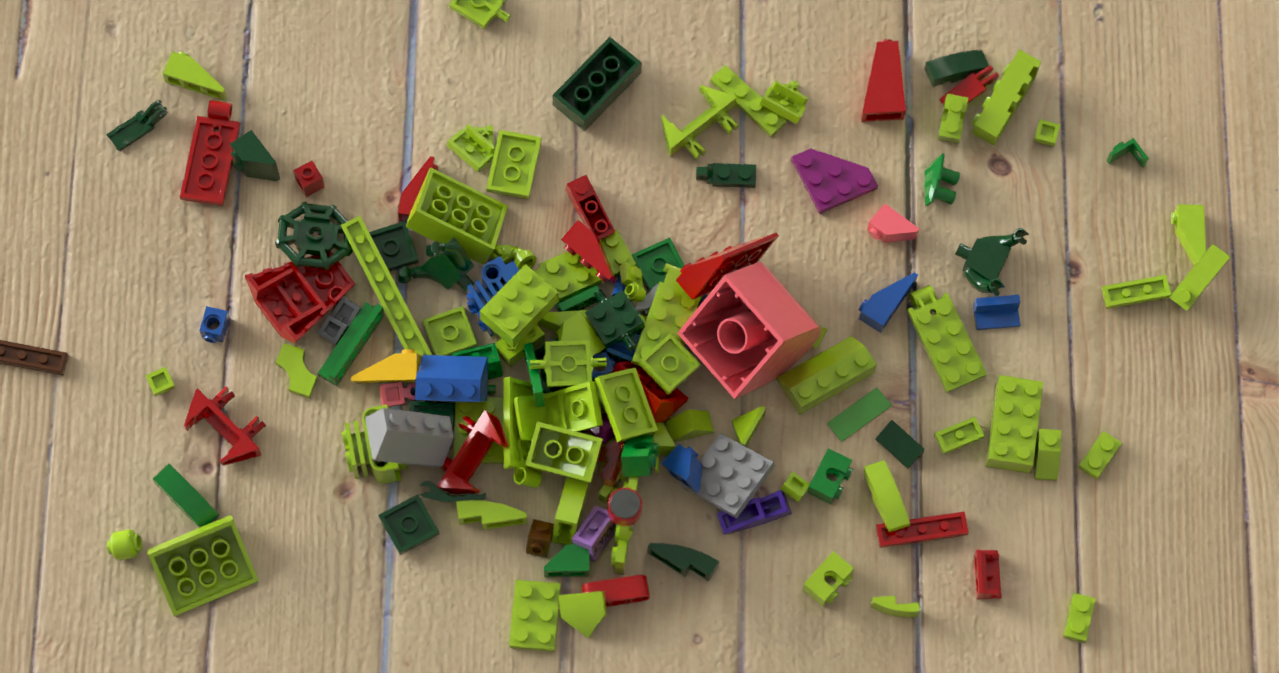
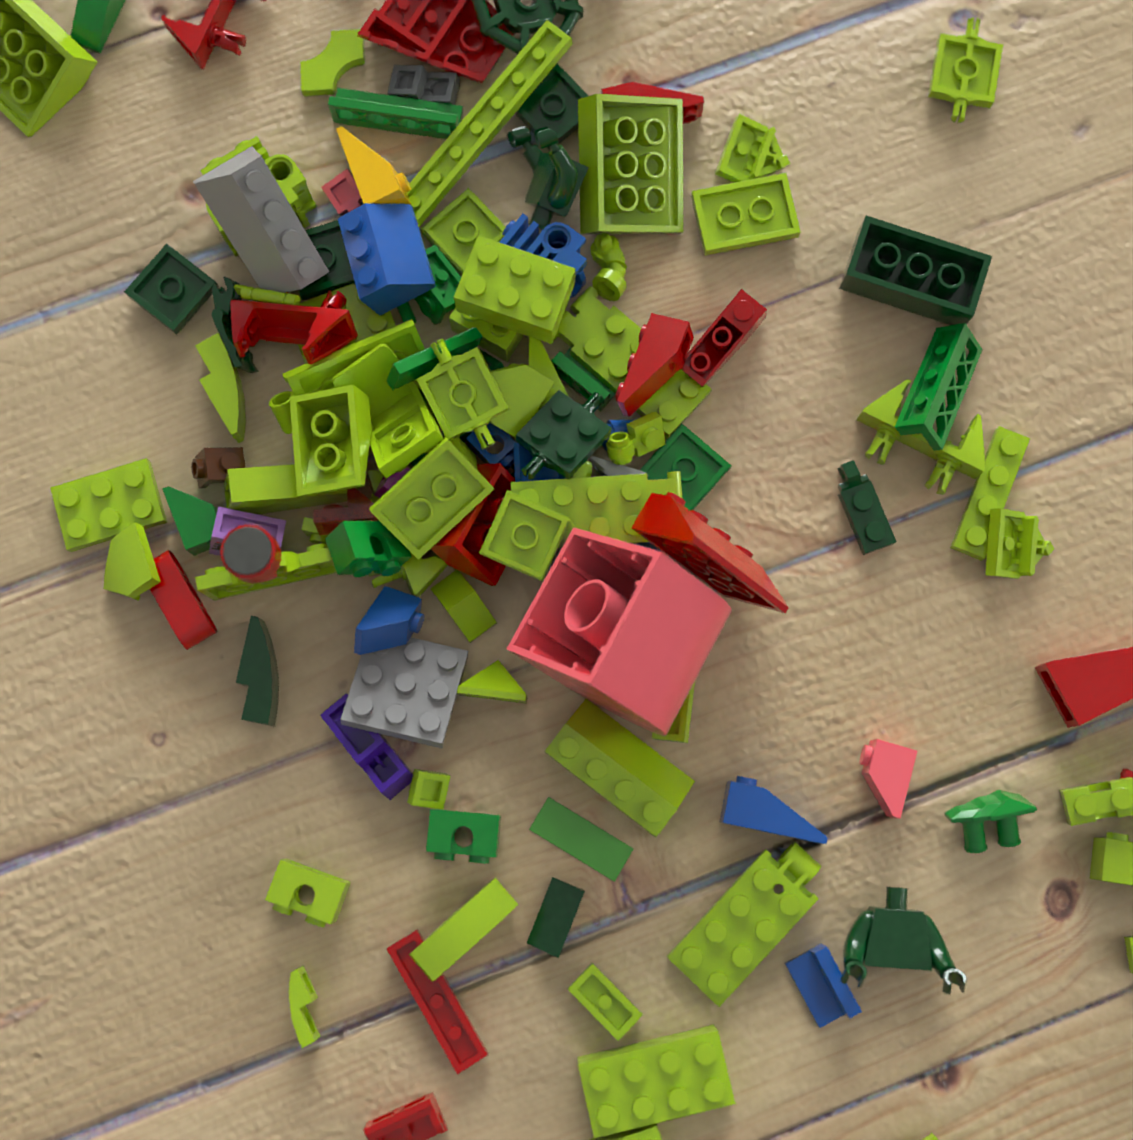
camera: 70 degrees right, 10 degrees up
(444, 464) = (266, 296): none -> lime wheel
(672, 99) = (938, 379): none -> green fence
(832, 179) = (925, 659): magenta plate -> none

